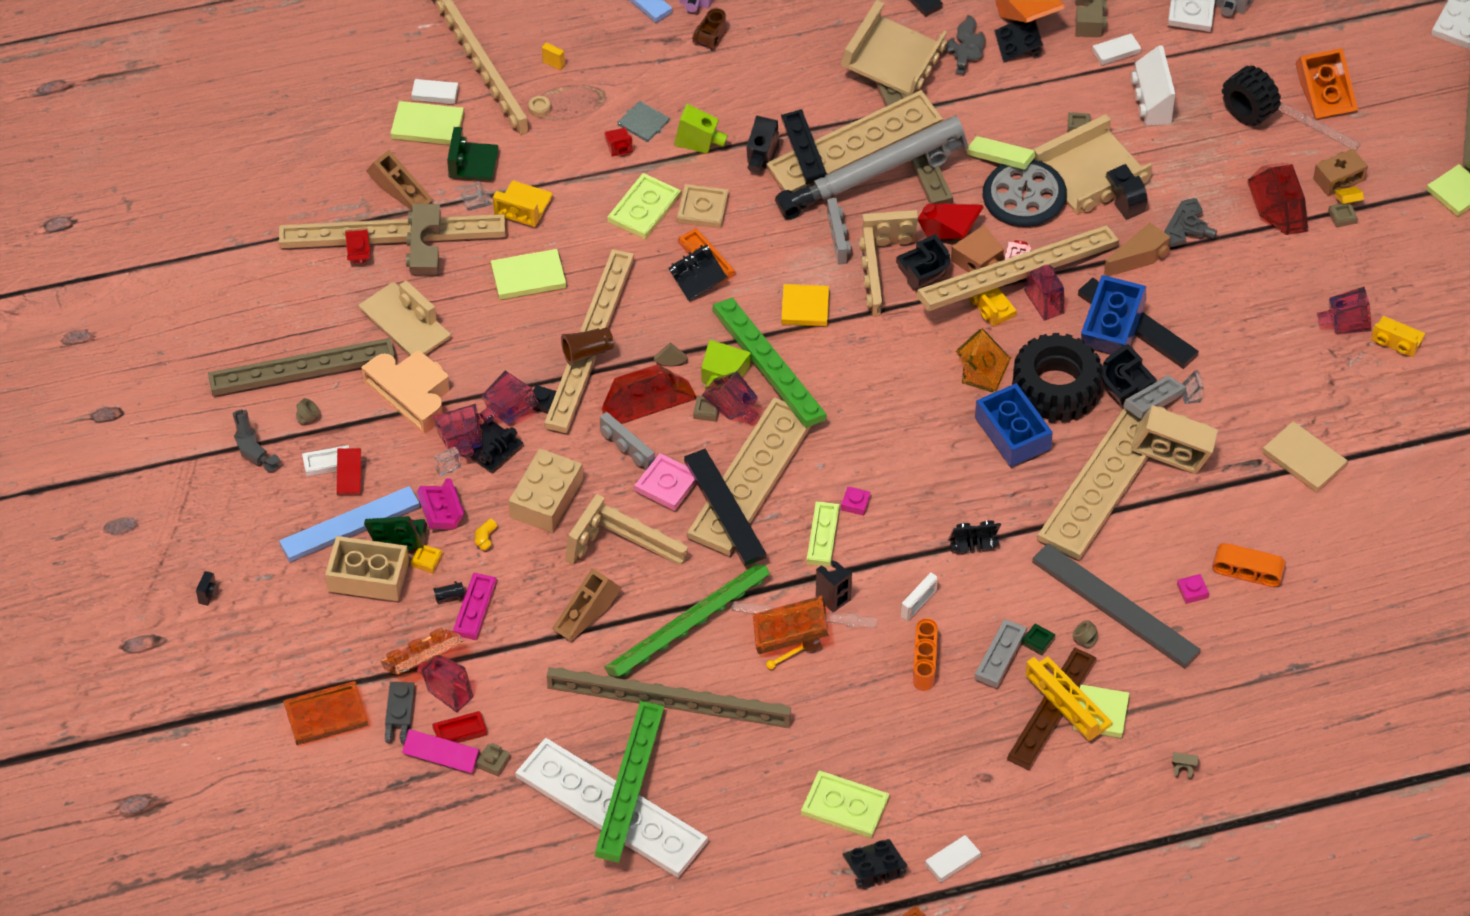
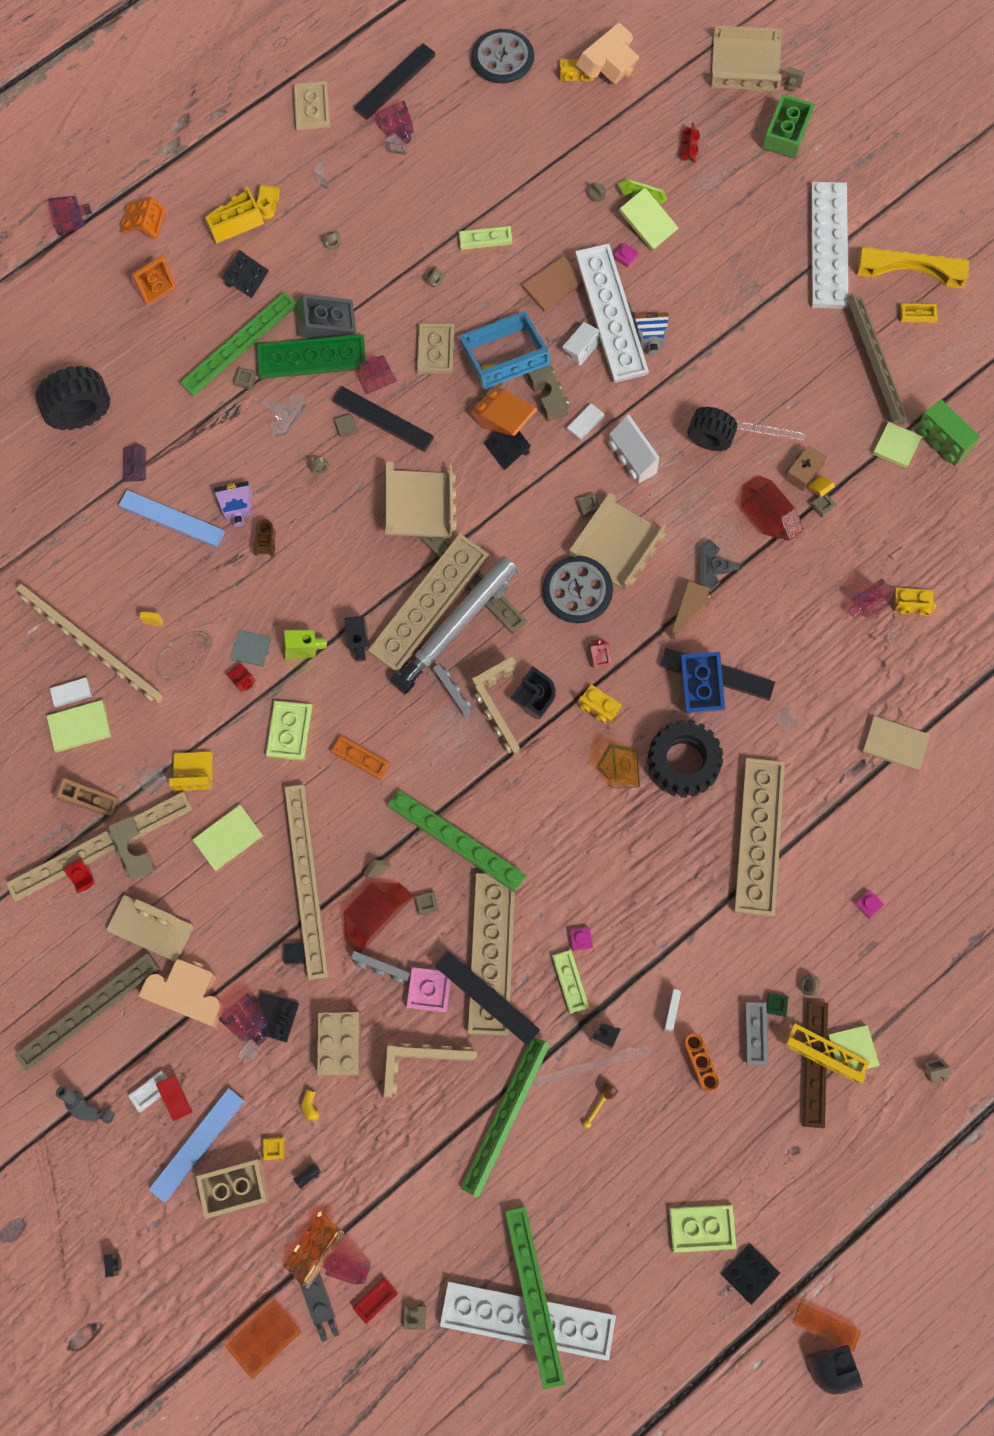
camera: 20 degrees left, 20 degrees up
(306, 411) = (112, 1053): dark tan tile -> none
(397, 531) = (242, 1141): dark green bracket -> none
(441, 505) = (262, 1096): dark pink bracket -> none
(441, 751) = (371, 1332): dark pink tile -> none
(471, 159) = (131, 747): dark green bracket -> none
(475, 606) = (332, 1177): dark pink tile -> none
(507, 399) = (268, 972): clear pink torso -> none
(539, 106) = (161, 670): tan tile -> none
(586, 344) = (309, 894): reddish brown plant -> none
(587, 604) = (421, 1139): medium nougat slope -> none
(669, 697) = (515, 1197): dark tan plate -> none
(697, 272) = (361, 779): black hinge -> none
(702, 206) = (335, 710): tan tile -> none
(722, 360) = (423, 861): lime torso -> none
(732, 397) = (452, 892): clear pink torso -> none
(790, 625) = (589, 1087): clear orange plate -> none
(803, 146) = (391, 624): black tile -> none
(805, 305) = (458, 770): yellow tile -> none
(949, 220) = (535, 643): red slope -> none
(952, 858) = (806, 1240): white tile -> none
(965, 531) = (694, 931): black hinge -> none
(971, 47) = (474, 466): dark grey piece -> none
(977, 250) = (571, 664): nougat torso -> none
(1000, 152) = (544, 561): yellowish green tile -> none
(1013, 424) = (671, 817): blue brick -> none
(1016, 268) = (608, 671): tan plate -> none
(1045, 285) = (638, 679): clear pink torso -> none
(1116, 606) = (820, 946): dark grey tile -> none
(1125, 374) = (735, 733): black brick -> none
(1130, 191) = (661, 558): black brick -> none
(1157, 394) = (764, 743): light grey plate -> none
(1174, 439) = (802, 781): tan brick -> none
(1249, 565) = (902, 865): orange beam -> none
(1326, 83) = (759, 389): orange slope -> none

